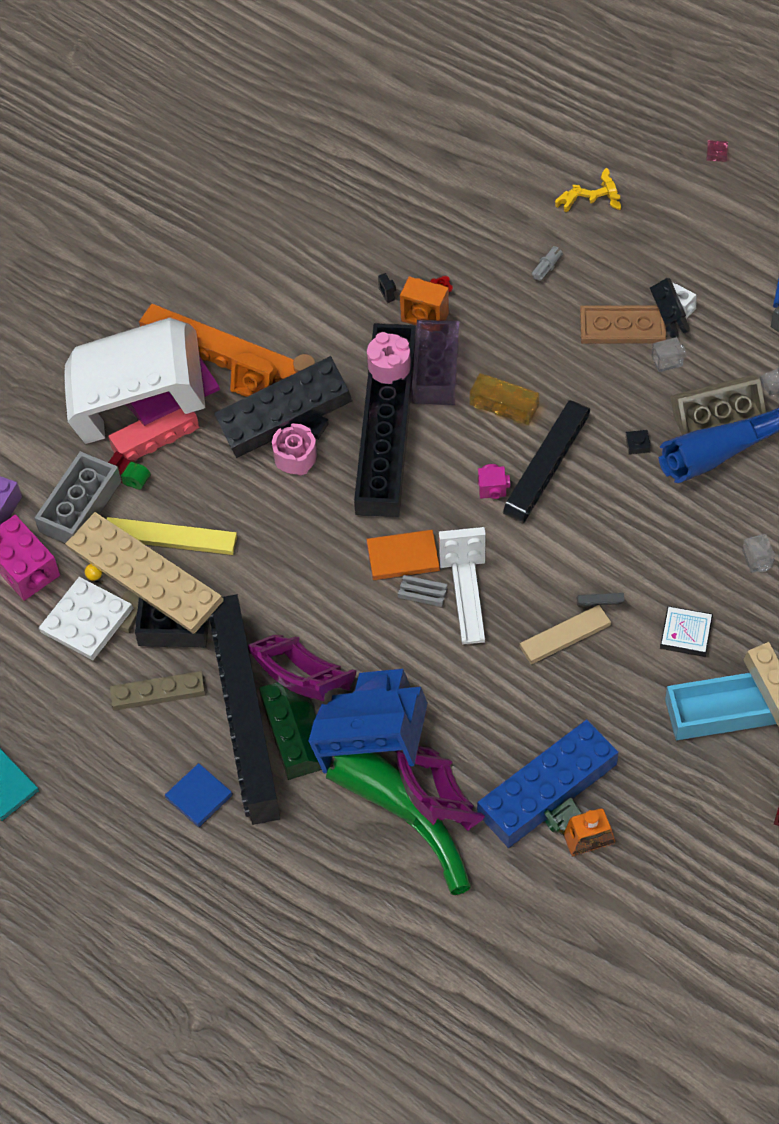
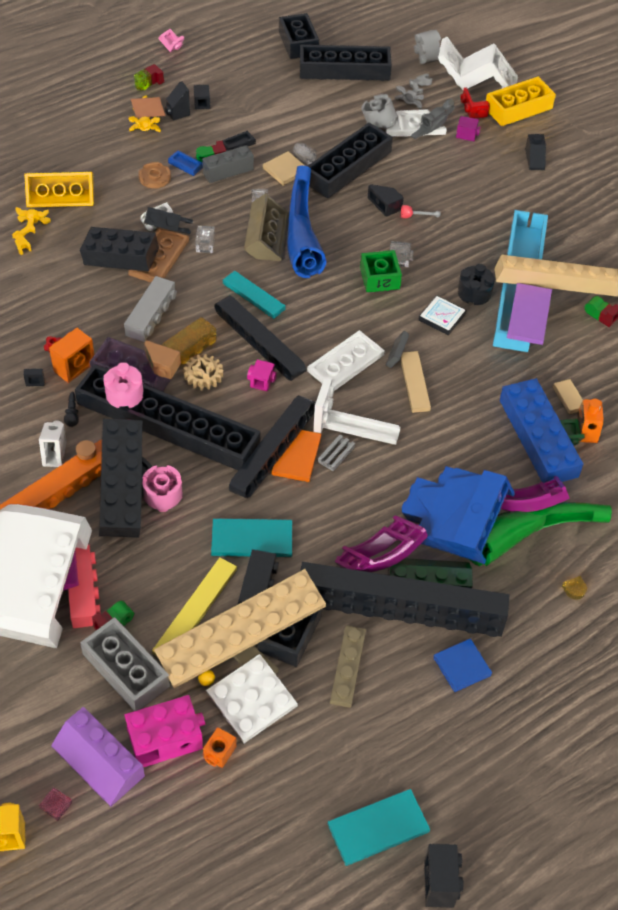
camera: 75 degrees left, 5 degrees down
(28, 616) = (219, 739): none -> orange brick
(223, 573) = (258, 574): none -> black brick
(251, 374) = (75, 489): orange slope -> none
(275, 553) = (240, 536): none -> teal tile
(308, 336) = (52, 435): none -> white torso
(344, 882) = (575, 588): none -> clear yellow tile
(354, 342) = (71, 418): none -> black bar
(387, 524) = (272, 447): none -> black beam
(442, 377) = (162, 359): none -> medium nougat slope
(468, 427) = (203, 372): none -> tan gear
(533, 345) = (150, 309): none -> light grey brick
(546, 263) = (76, 275): light grey axle -> none
(557, 555) = (346, 360): none -> white plate
(600, 282) = (119, 249): none -> black brick
(612, 433) = (254, 294): none -> teal tile
(627, 804) = (568, 395): none -> tan tile
(638, 442) = (269, 283): black plate -> none
(665, 194) = (59, 189): none -> yellow slope
(711, 540) = (380, 271): none -> green brick
(714, 712) = (529, 313): none -> medium lavender tile
(717, 151) = (37, 151): clear pink plate -> none
(744, 639) = (476, 284): none -> black brick
(747, 270) = (154, 175): none -> medium nougat tile

